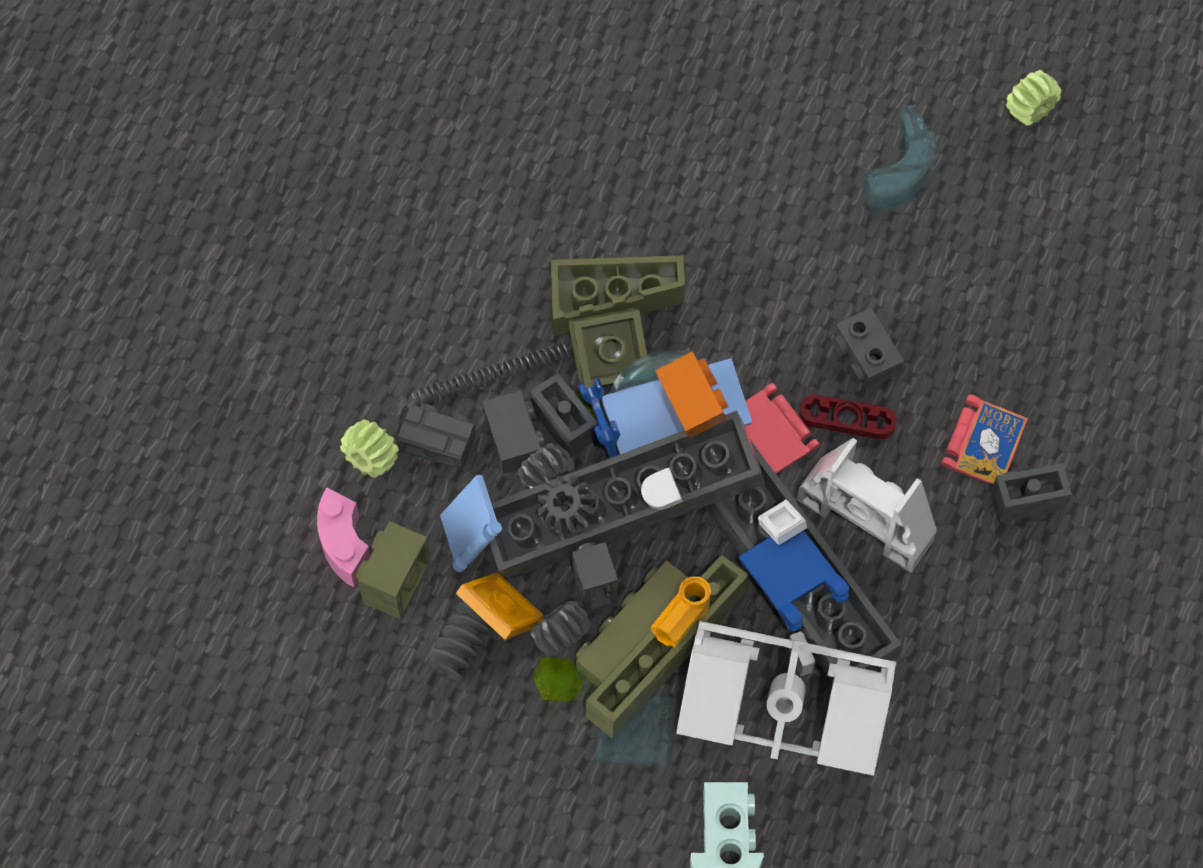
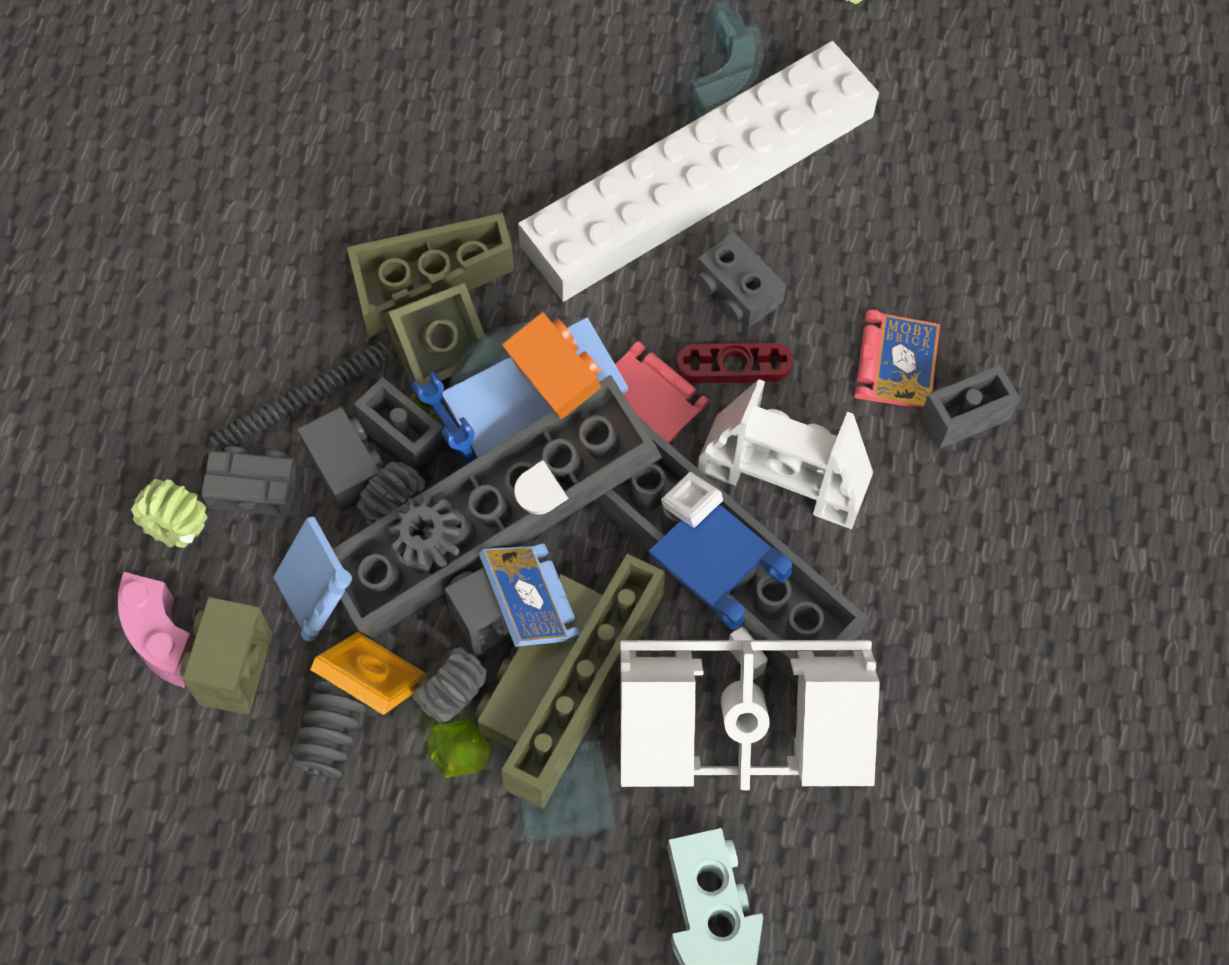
camera: 15 degrees left, 0 degrees up
(637, 570) = (529, 595): none -> piece
(681, 612) = (597, 635): light orange piece -> none
(856, 247) = (696, 170): none -> white brick

